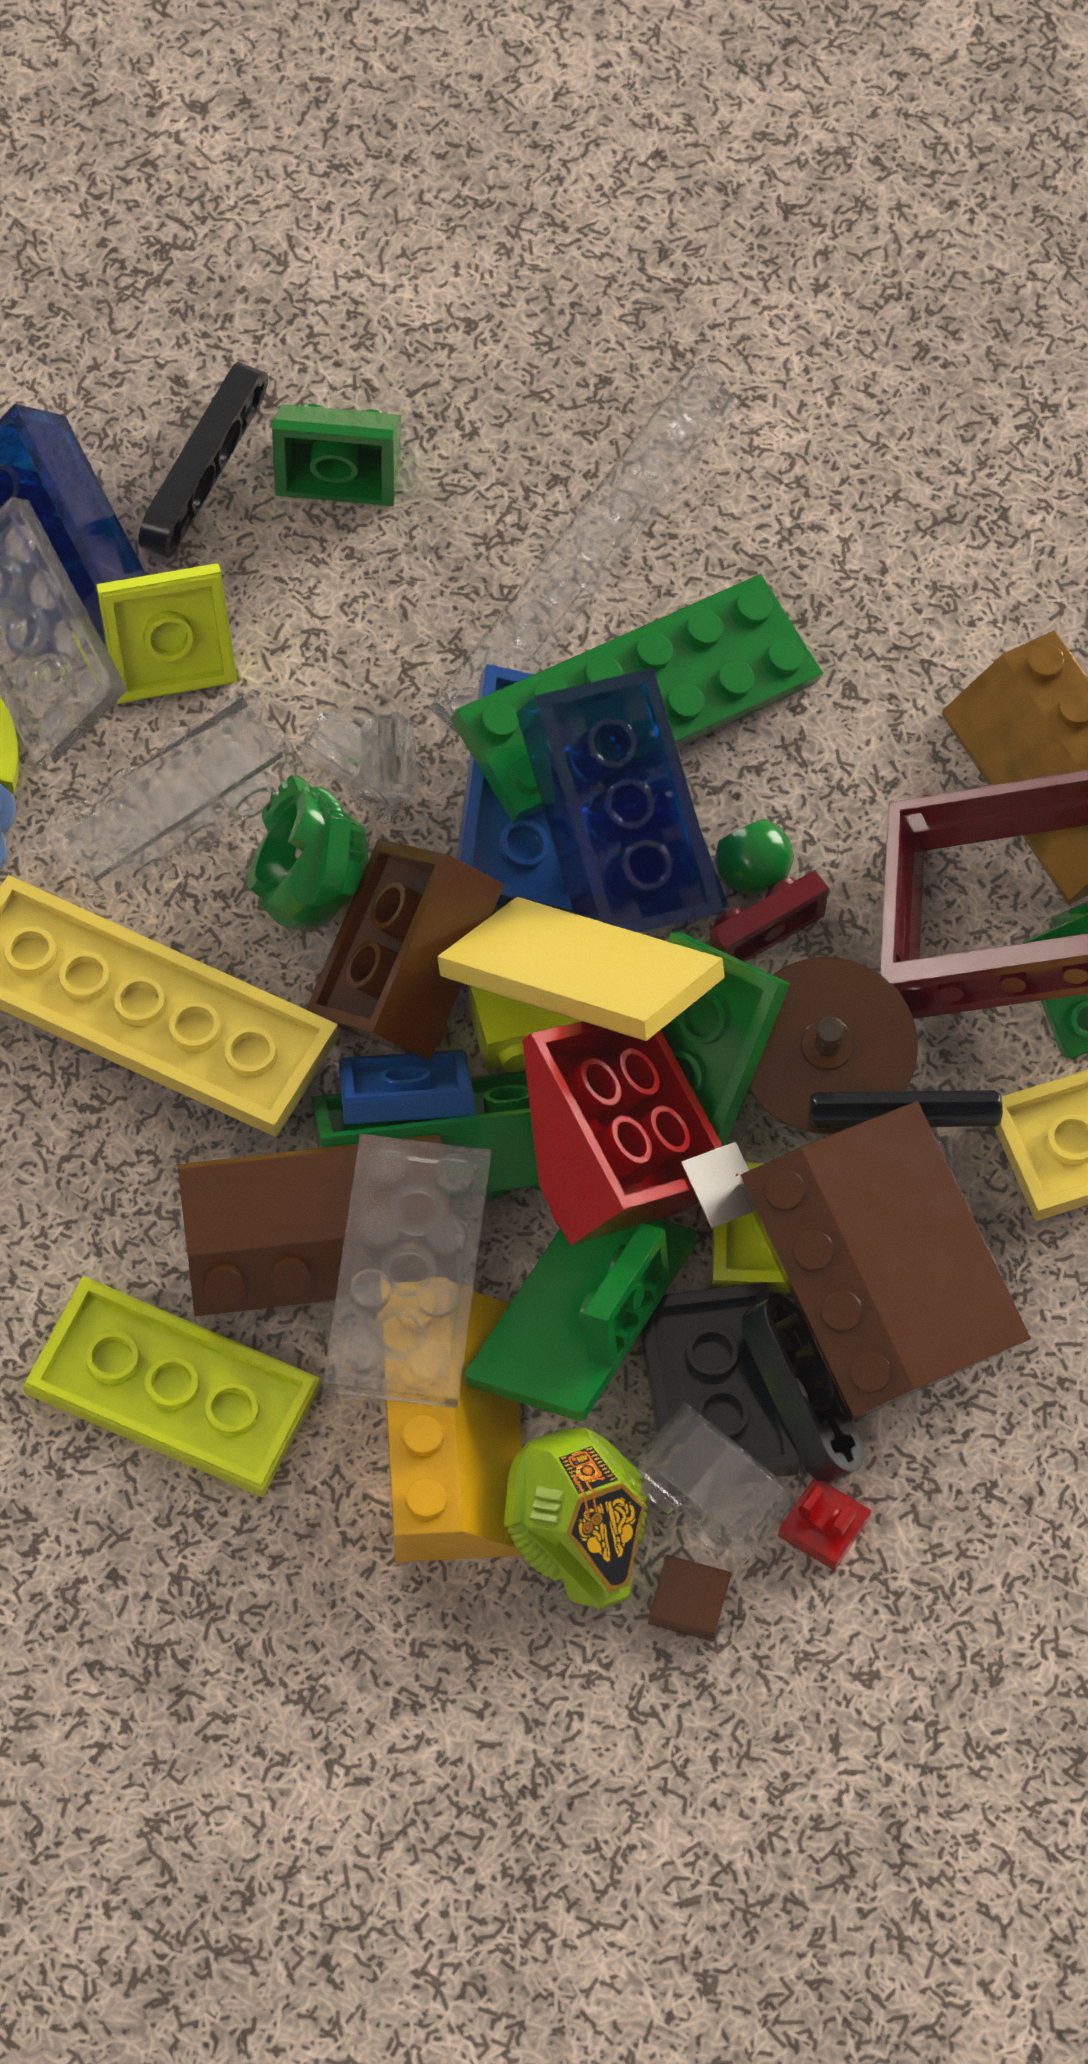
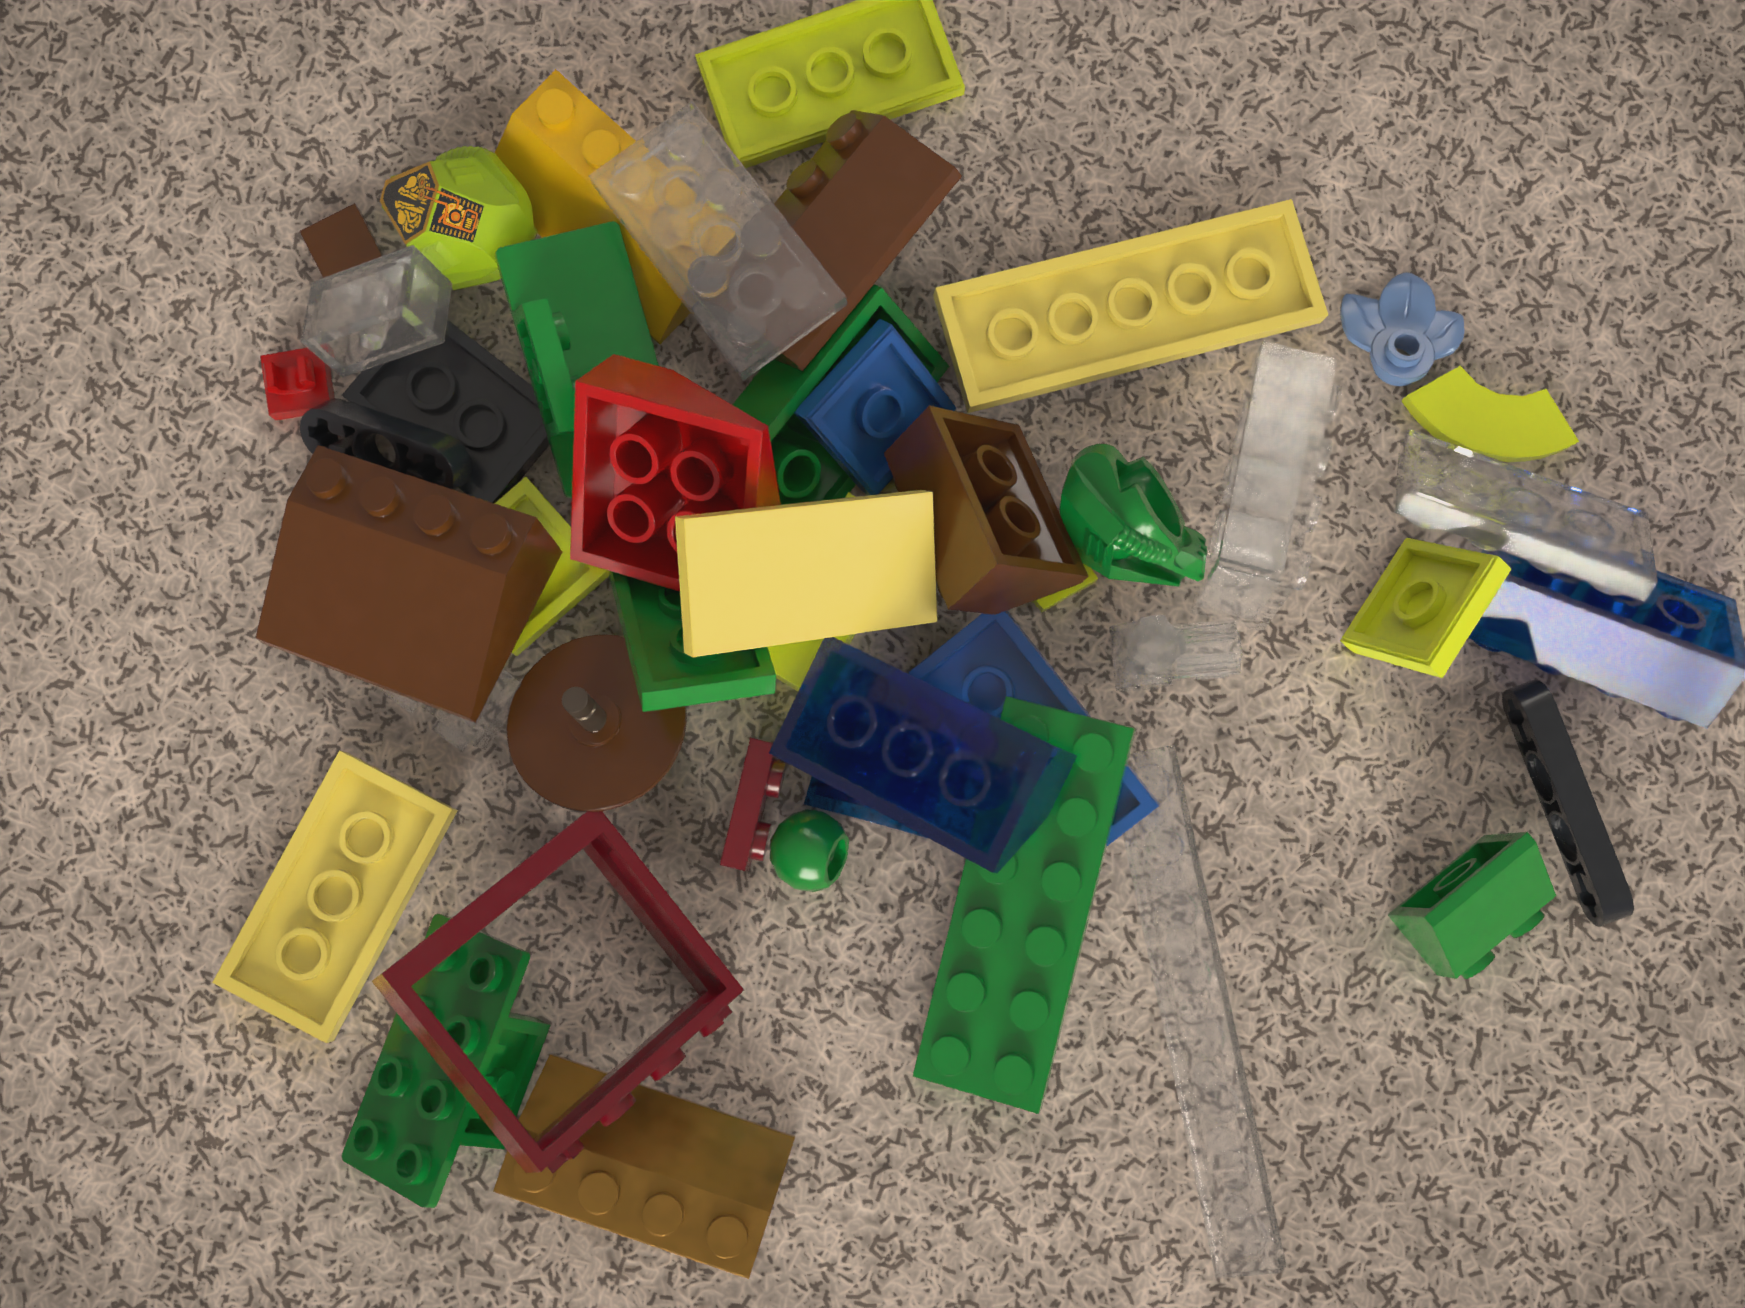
camera: 140 degrees right, 20 degrees up
(716, 1184) = (571, 522): white sticker -> none
(940, 1108) = (506, 703): black axle -> none

